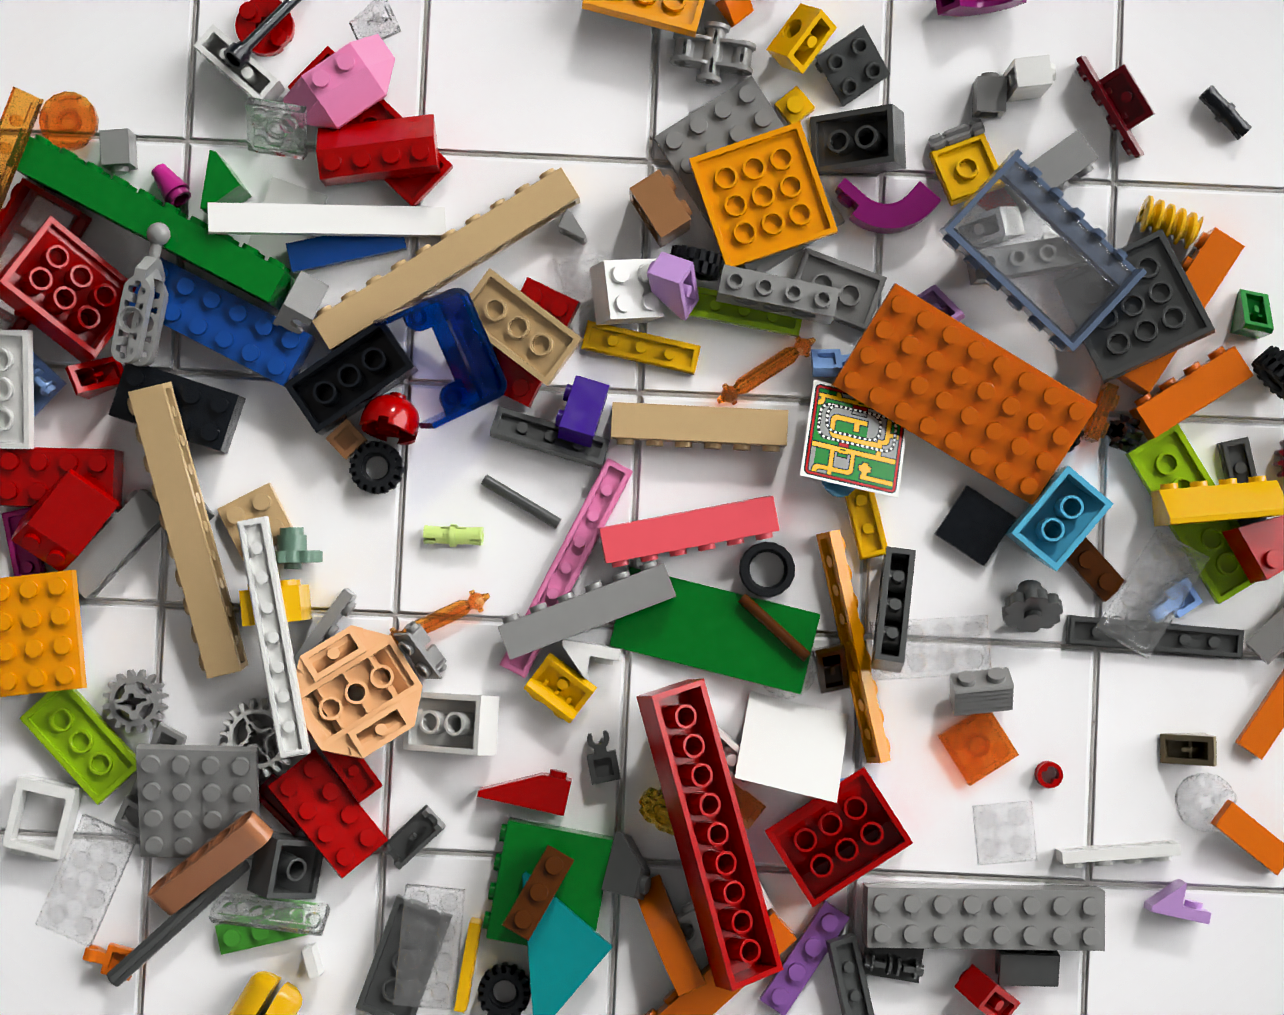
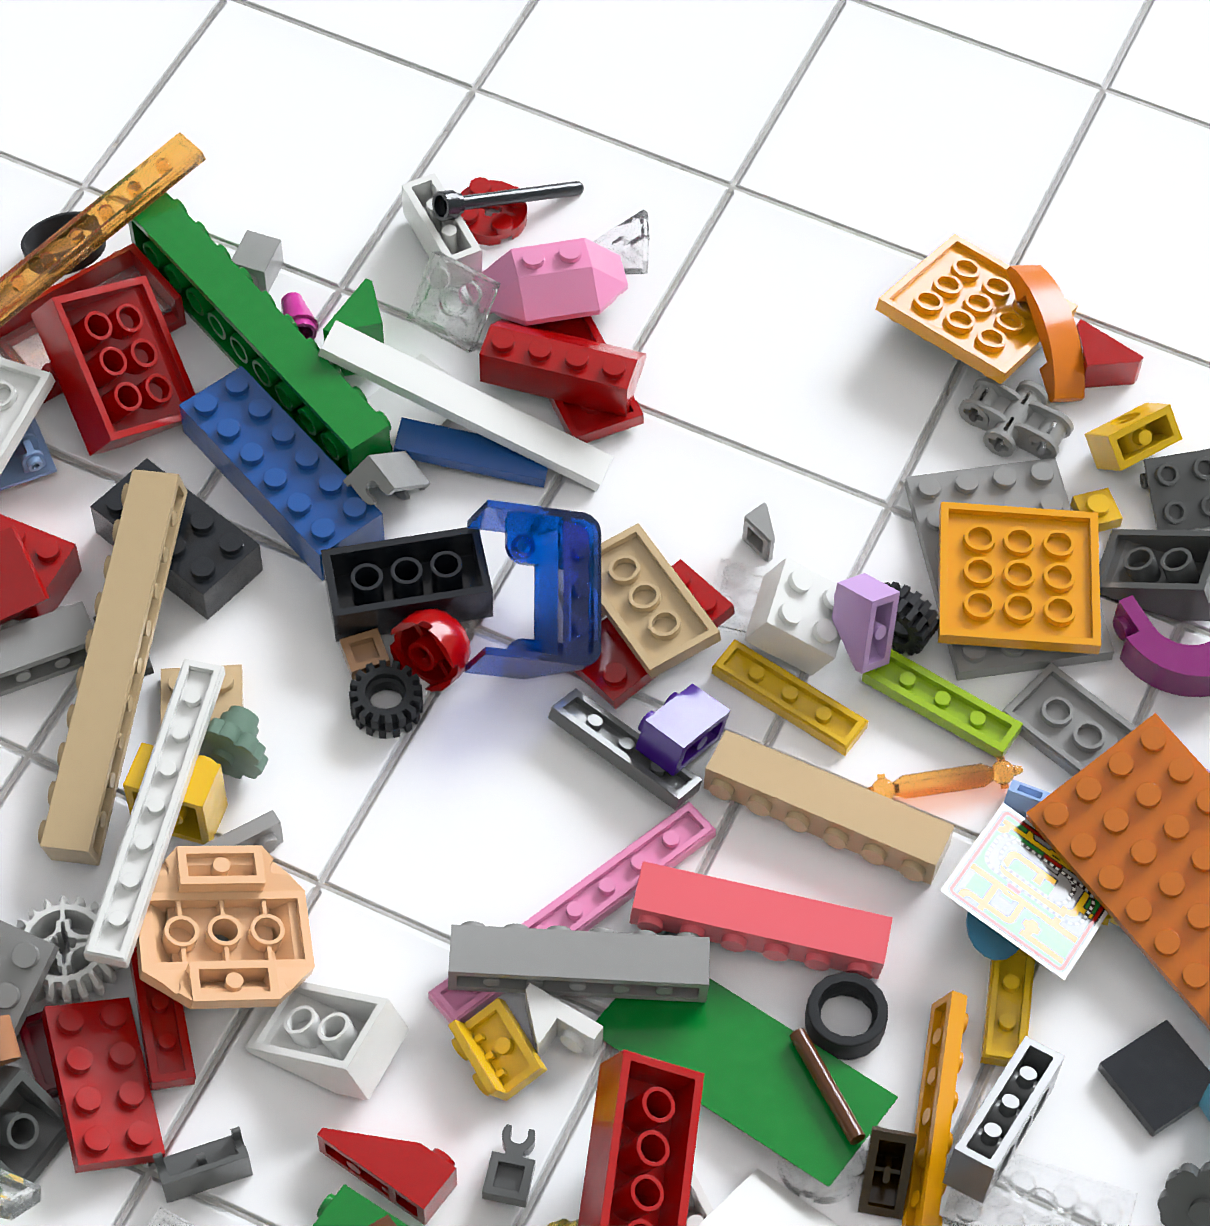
camera: 20 degrees right, 30 degrees down
(68, 120) = (222, 213): clear orange tile -> none
(94, 376) = (92, 469): red slope -> none
(152, 279) = (222, 378): light grey piece -> none
(428, 661) = (327, 910): light grey hinge -> none
(448, 613) = (378, 905): clear orange wheel -> none
(449, 258) = (655, 500): tan brick -> none
(453, 535) = (445, 813): yellowish green pin -> none
(521, 501) = (552, 812): dark grey bar -> none
(660, 208) = (882, 536): medium nougat brick -> none
(777, 294) = (993, 687): light grey brick -> none

